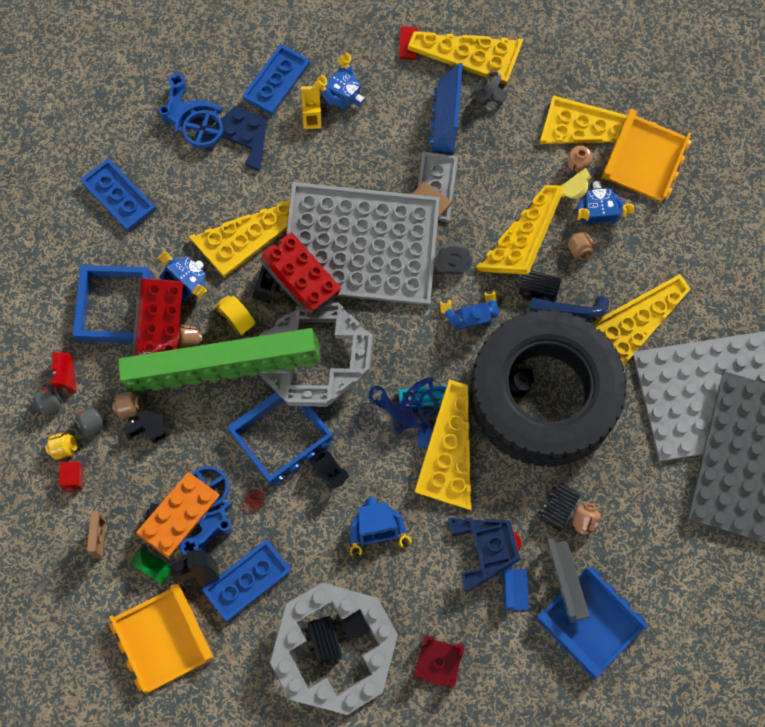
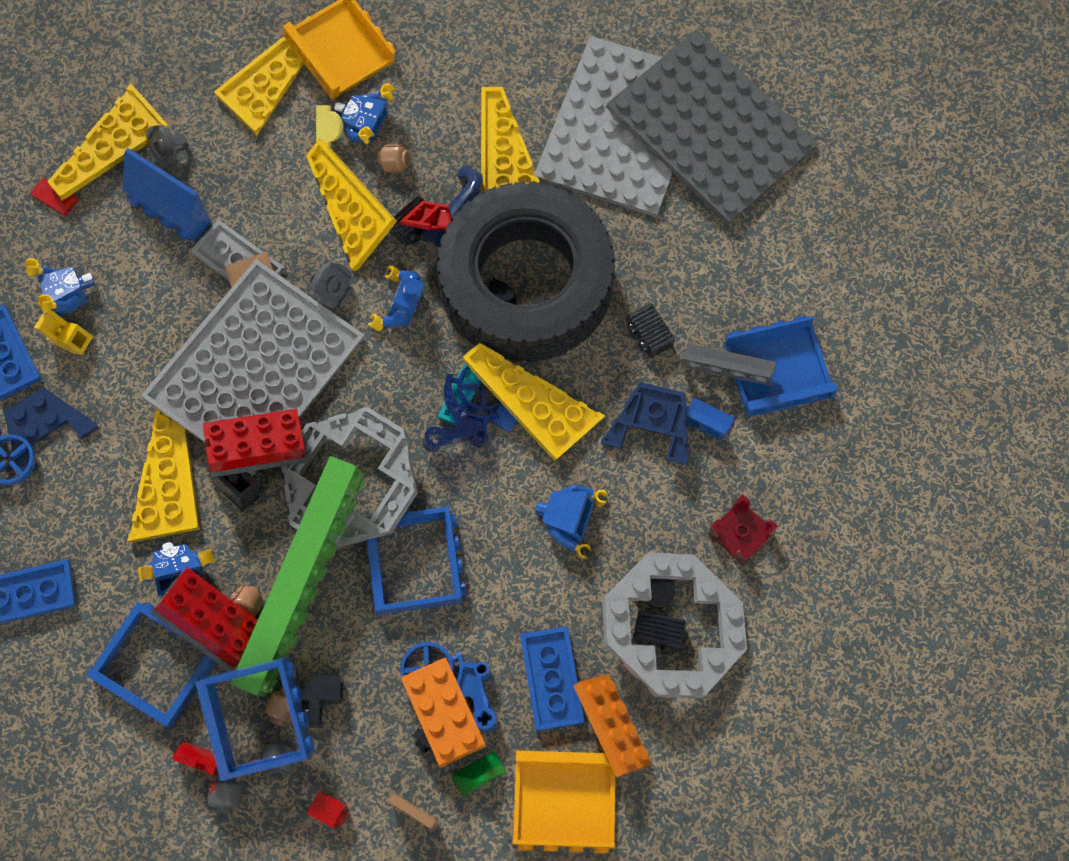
camera: 55 degrees left, 0 degrees up
(61, 445) = (286, 804): yellow head -> none
(82, 370) = (217, 729): none -> blue window
(197, 565) = (509, 720): black brick -> none
(233, 642) = (612, 725): none -> orange plate
(235, 313) = (250, 535): yellow brick -> none
(255, 499) = (469, 625): clear red tile -> none
(328, 469) = (483, 532): black brick -> none
(544, 293) = (428, 216): none -> red slope
(579, 158) = (301, 106): nougat head -> none
(586, 519) = (677, 312): nougat head -> none

